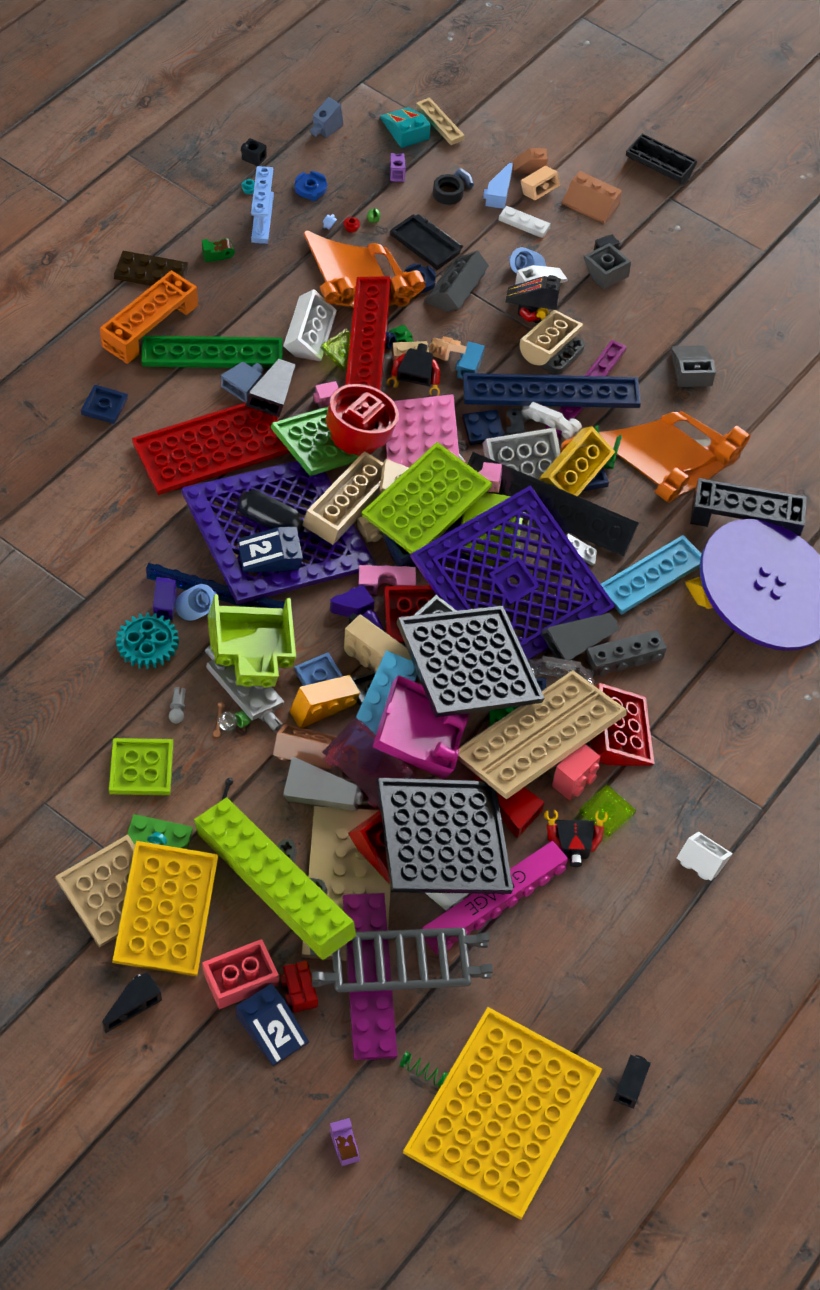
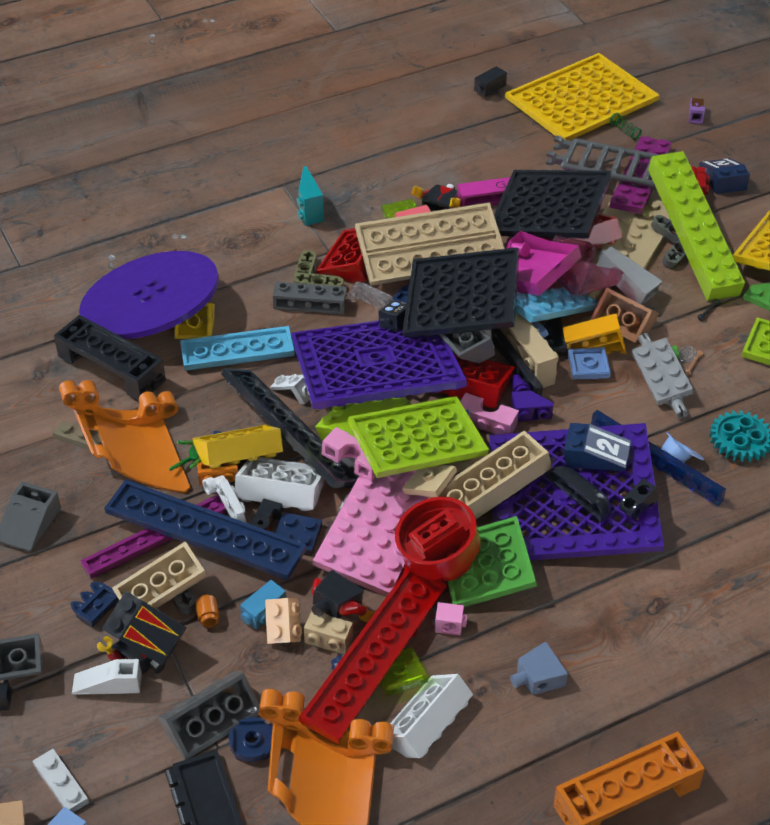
camera: 150 degrees left, 10 degrees down
(104, 404) = (718, 700): dark blue plate -> none
(165, 598) = (713, 460): dark purple slope -> none
(176, 714) = (729, 378): light grey pin -> none
(208, 447) = (608, 609): red plate -> none
(210, 351) = (555, 722): green plate -> none
(214, 509) = (639, 499): none -> black leg
(240, 973) = (738, 195): coral brick -> none
(252, 641) = (645, 385): lime panel -> none
(272, 389) = (511, 636): slope -> none
(402, 334) = (319, 669): green plate -> none
(508, 344) = (207, 610): none -> orange brick
(524, 258) = (111, 710): light blue piece -> none
(529, 640) = (392, 316): none -> black head
(576, 636) = (339, 315): dark grey slope -> none
(592, 324) = (95, 604): none -> dark blue plate
(648, 685) = (306, 276): none -> olive beam
(703, 856) = (350, 166): white slope -> none
(710, 772) = (310, 200): none -> teal slope

